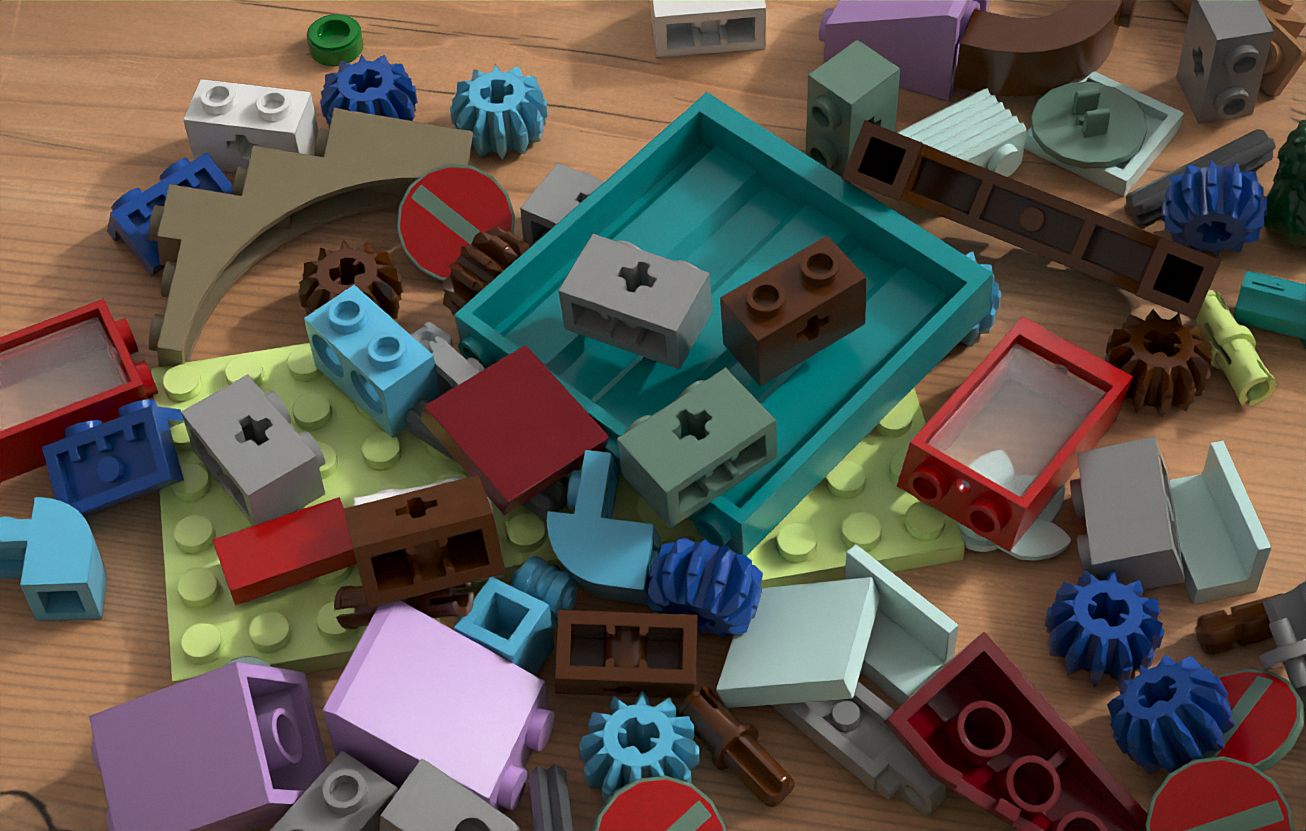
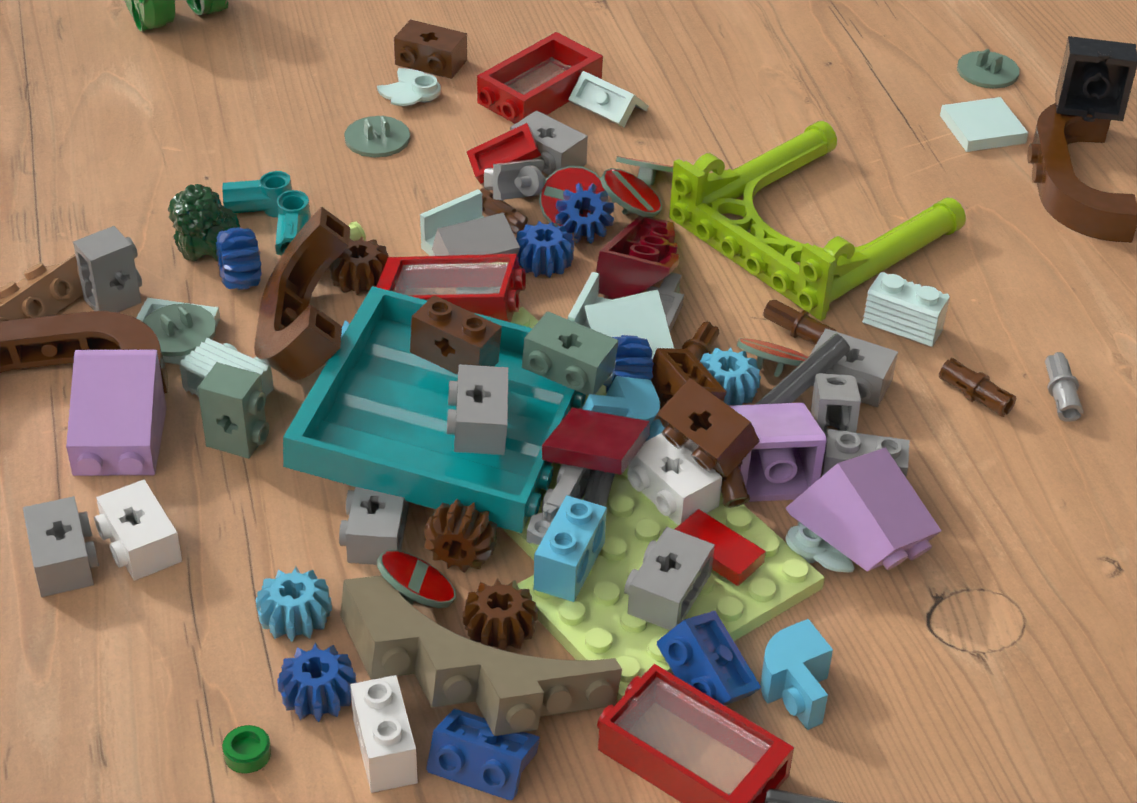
camera: 120 degrees left, 10 degrees down
(1248, 151) = (197, 285): dark grey axle -> none

